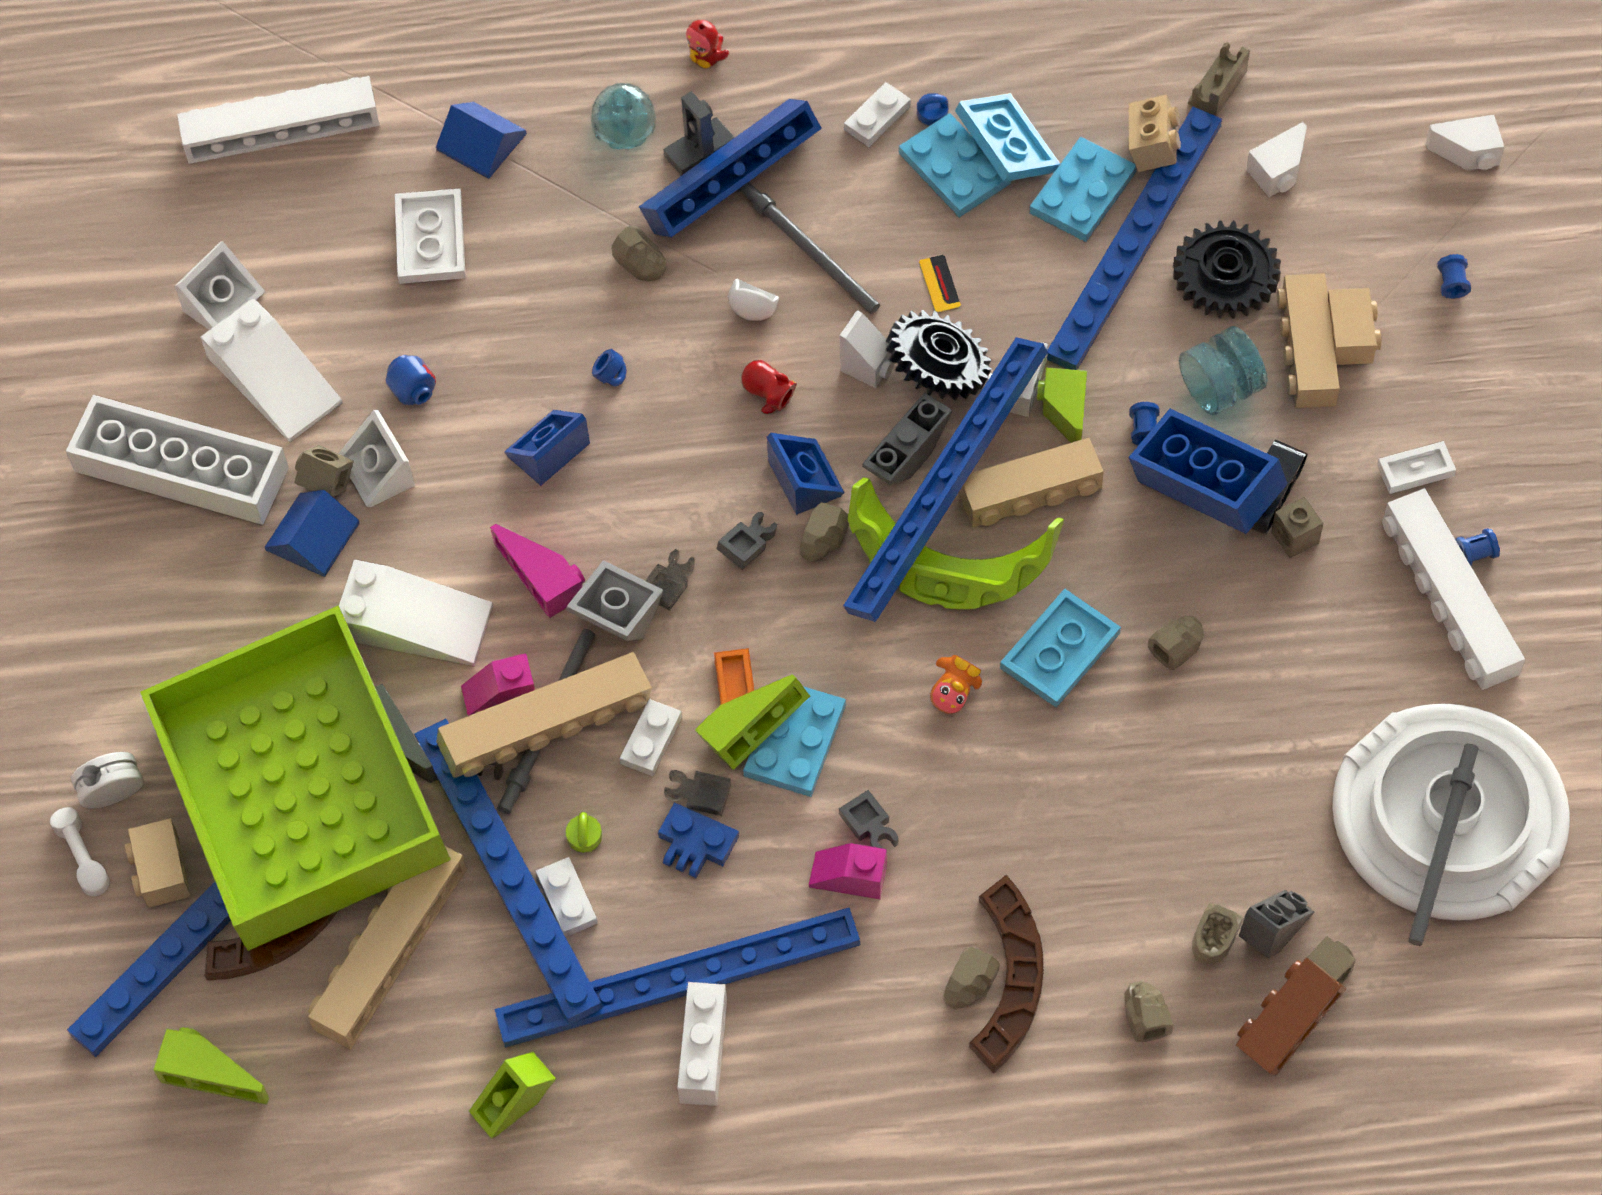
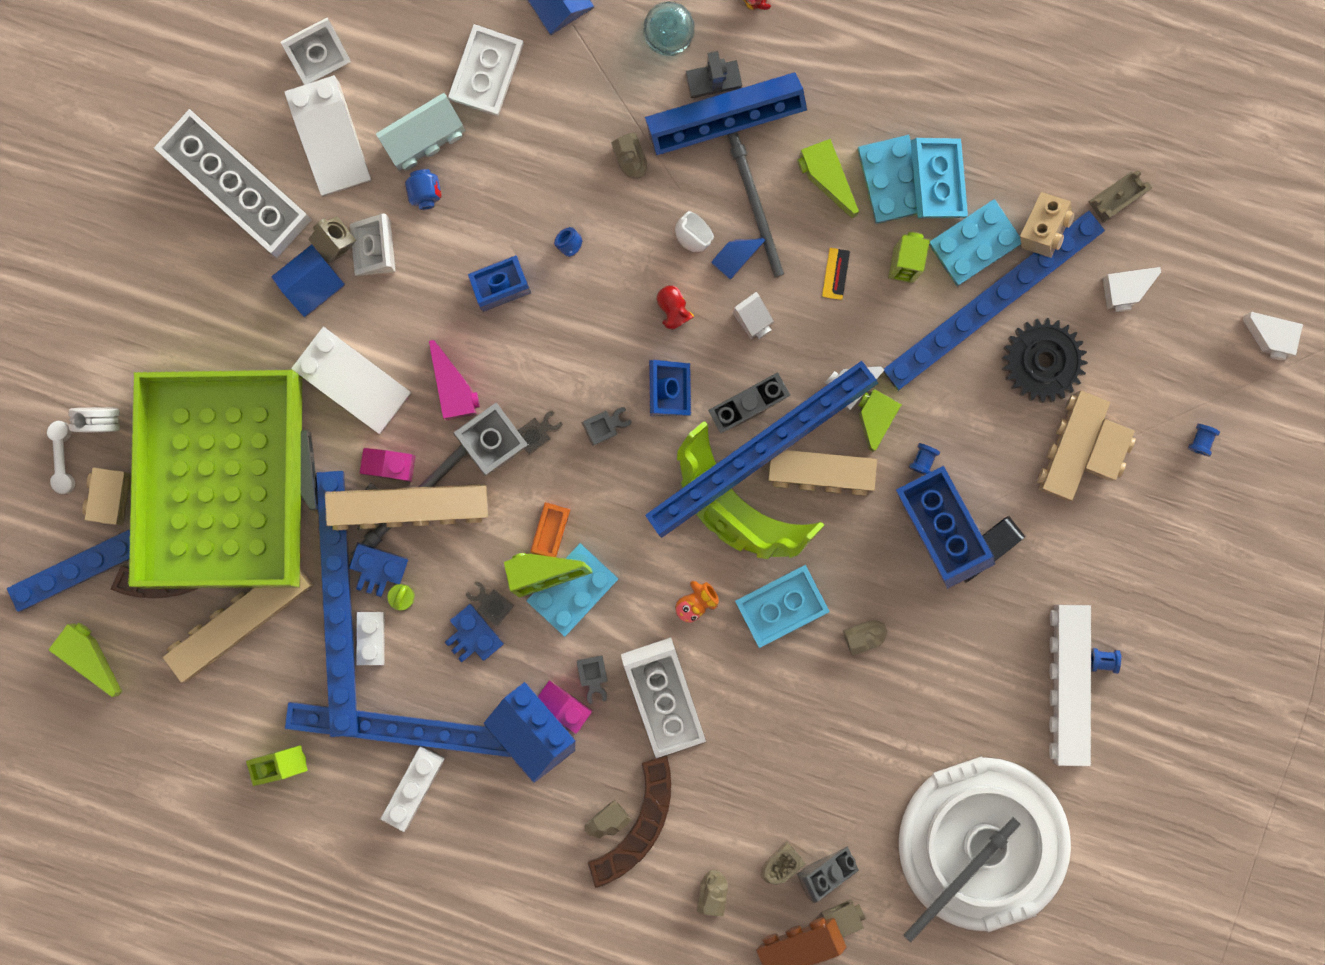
camera: 20 degrees right, 25 degrees up
(381, 319) = (421, 132): none -> light aqua slope
(538, 808) = (376, 567): none -> blue hinge
(650, 737) = (475, 545): white plate -> none
(813, 305) = (735, 255): none -> blue slope
(821, 904) = (530, 732): none -> blue slope
(823, 531) = (659, 445): dark tan rock -> none
(877, 114) = (856, 109): white plate -> none
(880, 186) = (825, 171): none -> lime slope
(932, 108) = (898, 124): blue tile -> none
(938, 355) = (797, 323): black gear -> none
(968, 808) = (663, 697): none -> white slope
(1015, 216) = (909, 257): none -> lime brick
(1223, 370) = (1003, 448): clear light blue wheel -> none
(1297, 527) = (988, 590): dark tan brick -> none
(1416, 467) = (1096, 579): white plate -> none

